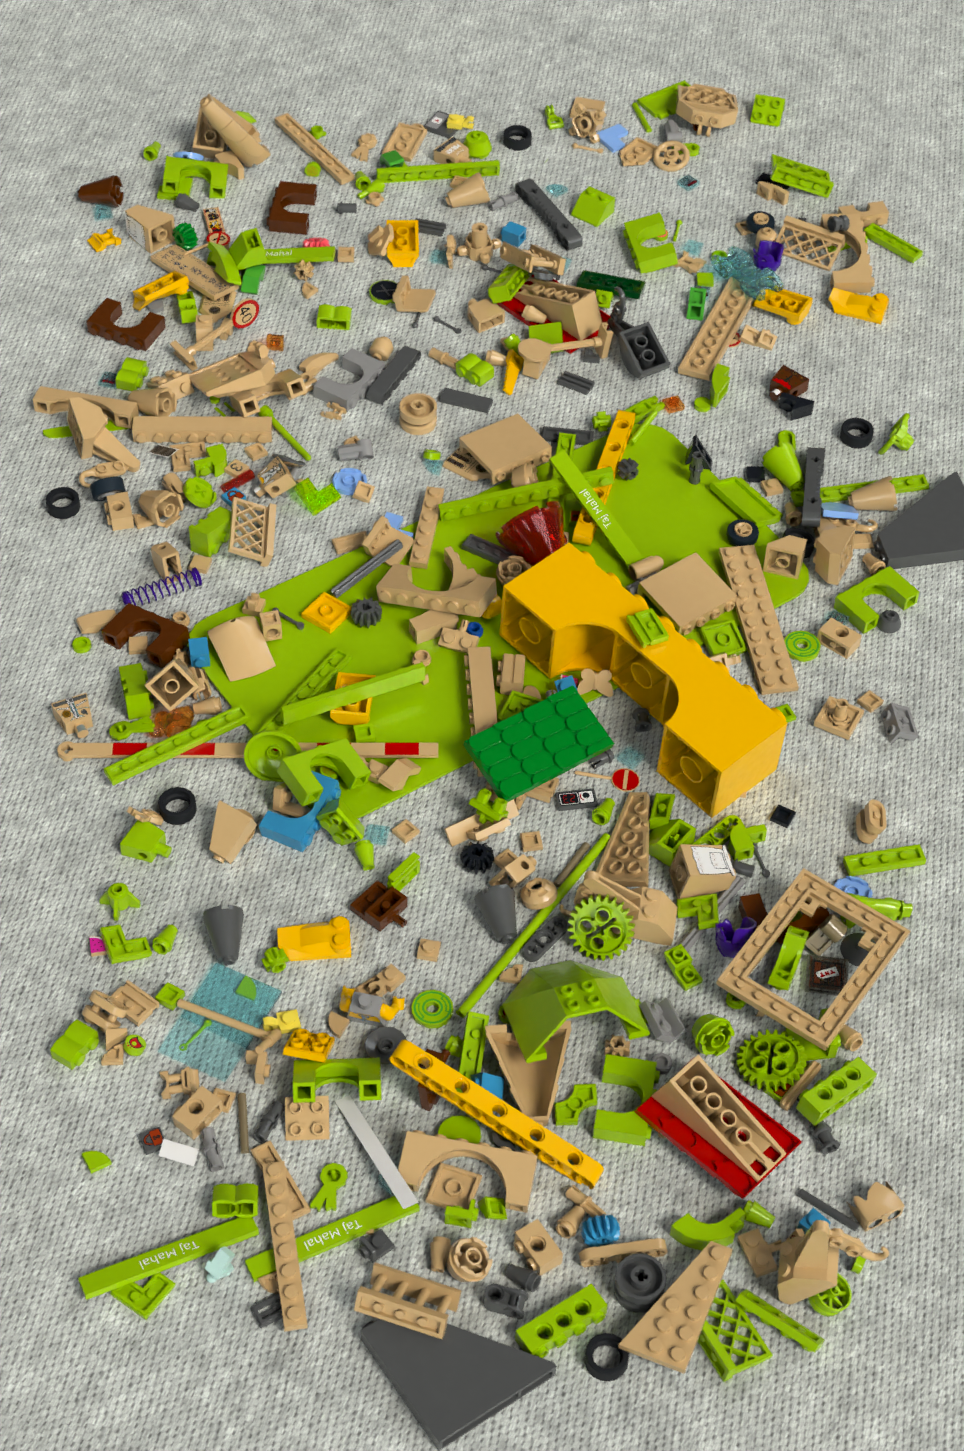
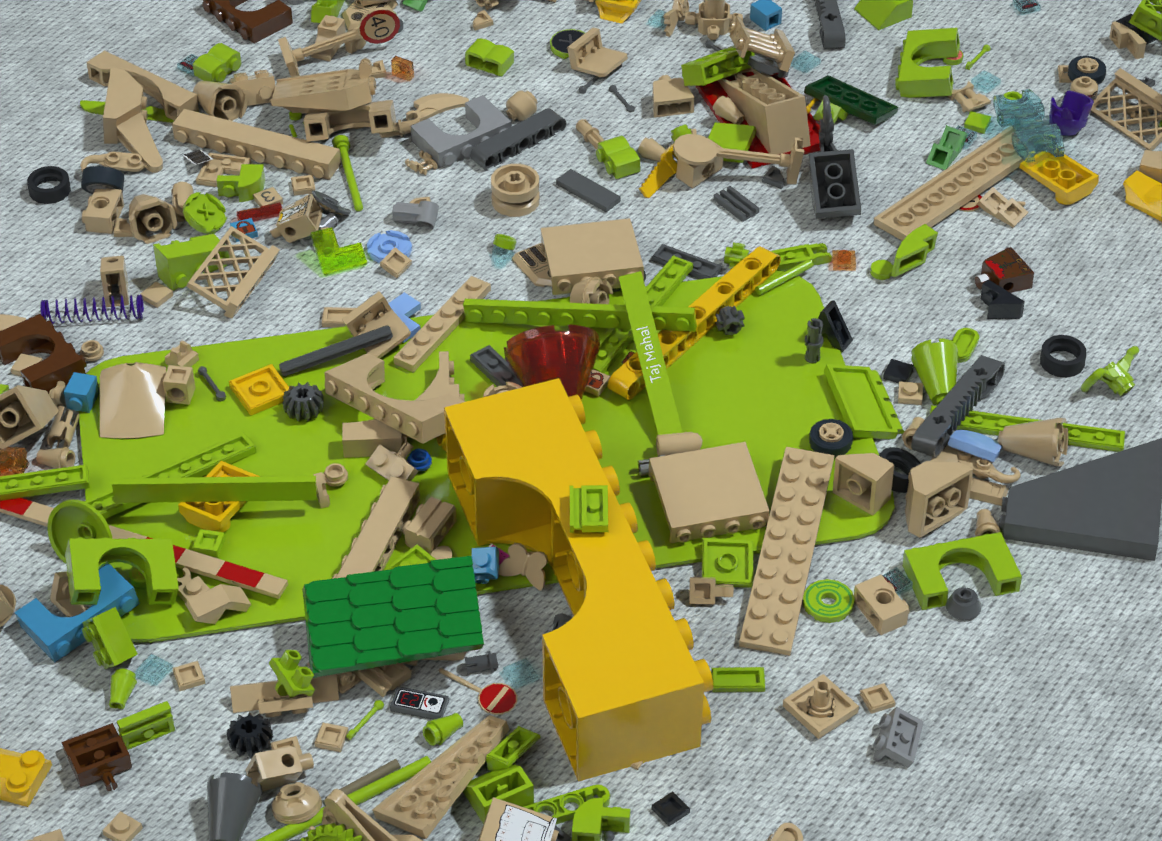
camera: 25 degrees right, 5 degrees down
(548, 809) = (378, 705): none -> lime hinge

